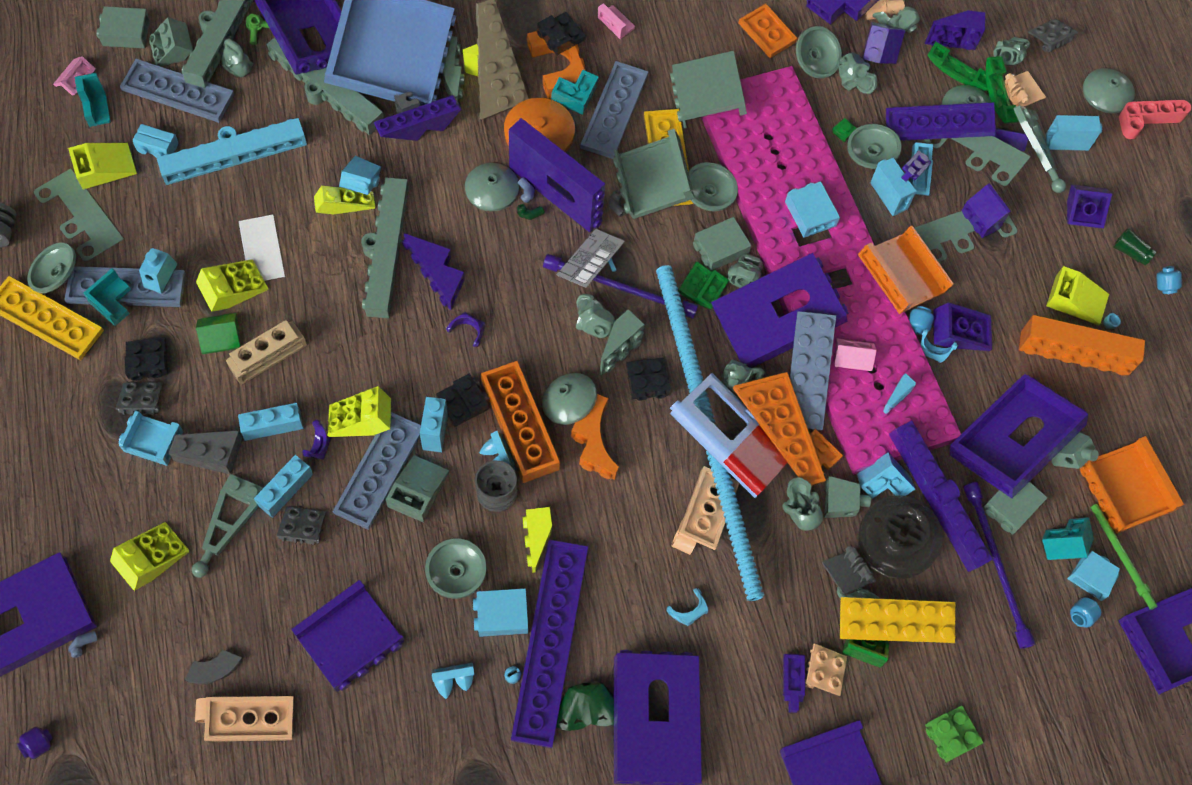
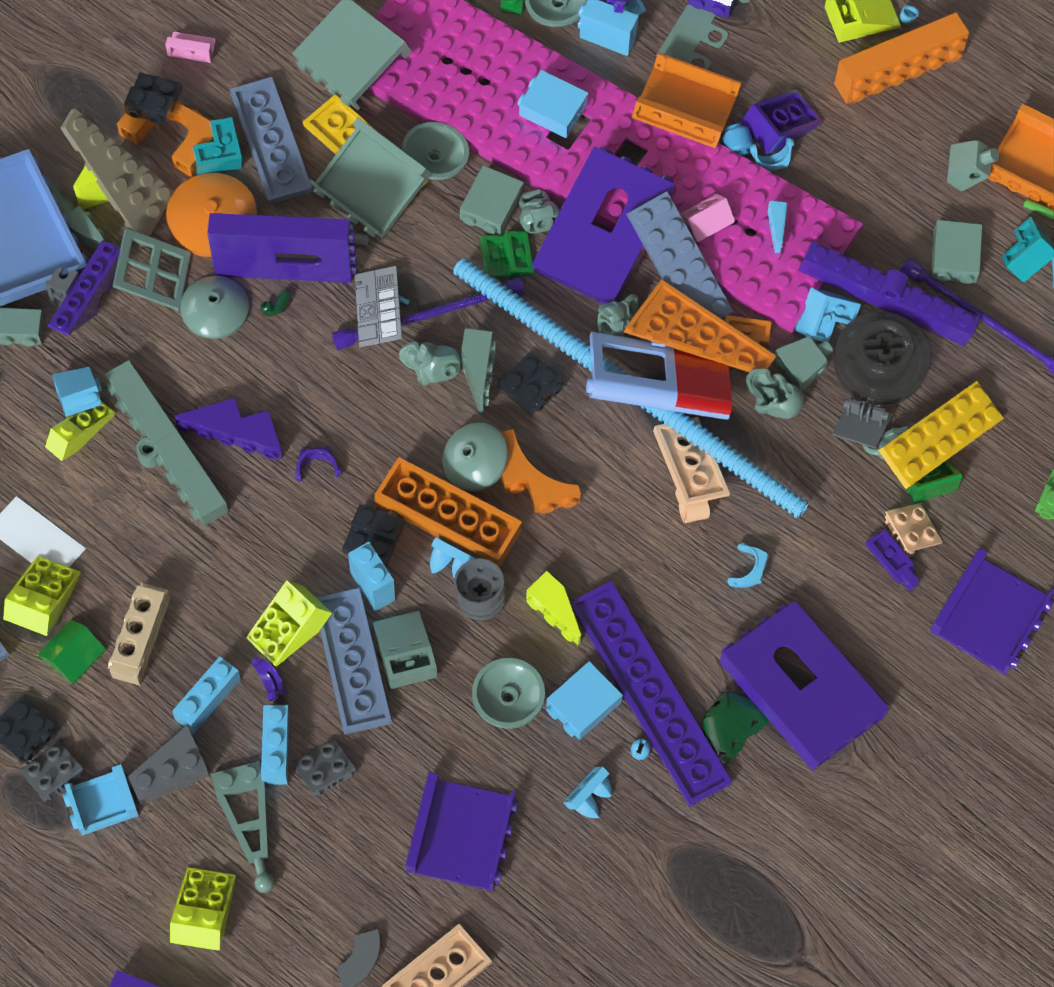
camera: 35 degrees left, 0 degrees up
(471, 135) = (152, 269): none -> sand green window
(528, 190) = (254, 282): sand blue arm -> none
(1001, 460) = (913, 219): dark purple panel -> none

